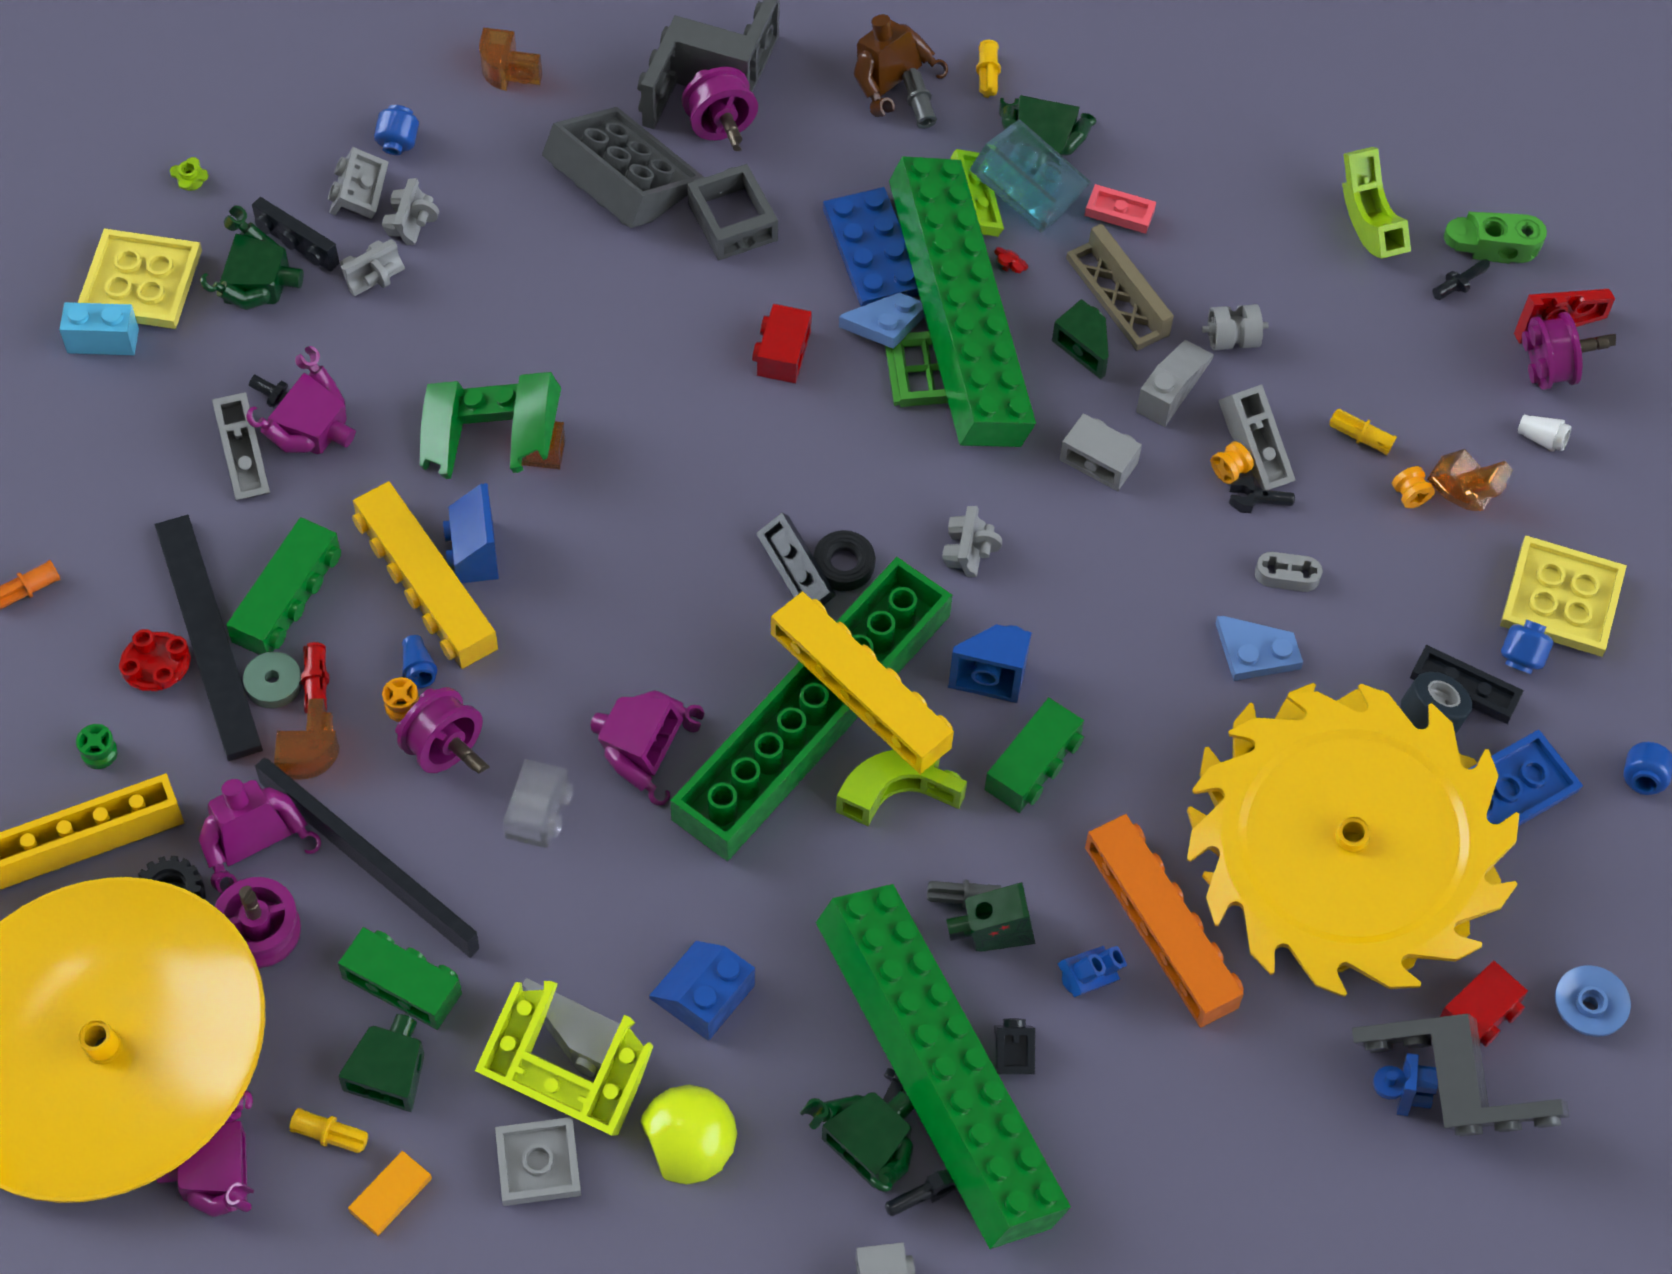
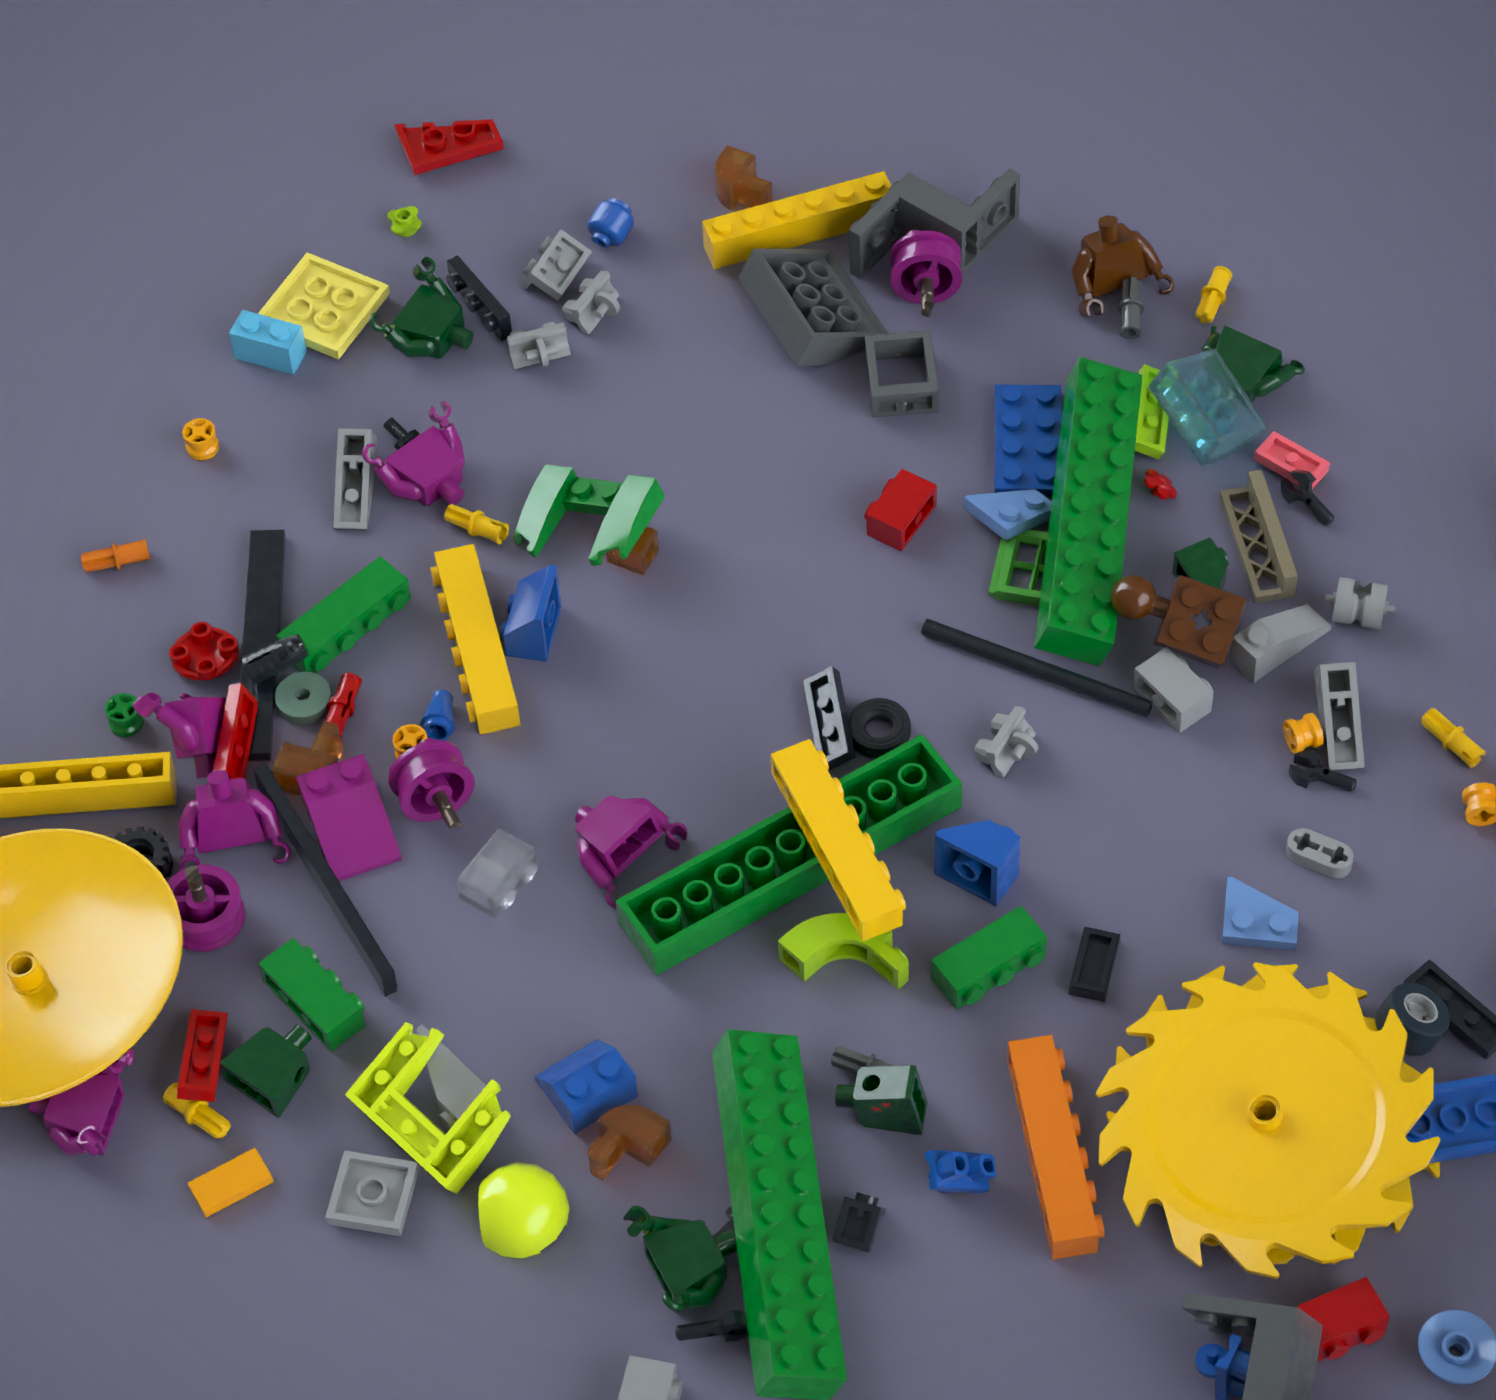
camera: 25 degrees right, 5 degrees down
(63, 436) = (200, 439): none -> light orange wheel
(182, 740) = (192, 725): none -> magenta torso
(200, 90) = (441, 146): none -> red wing
(223, 735) = (236, 732): none -> red plate
(234, 648) = (274, 658): none -> black hinge
(315, 1073) = (202, 1055): none -> red plate
(367, 788) = (348, 817): none -> magenta slope
(379, 459) = (477, 523): none -> yellow axle
(574, 86) = (791, 220): none -> yellow brick
(769, 1023) = (628, 1131): none -> clear orange brick
(966, 463) = (1037, 668): none -> black piece
(1085, 393) = (1136, 598): none -> reddish brown brick
(1129, 733) = (1094, 964): none -> black tile
(1146, 237) = (1306, 495): none -> black bar

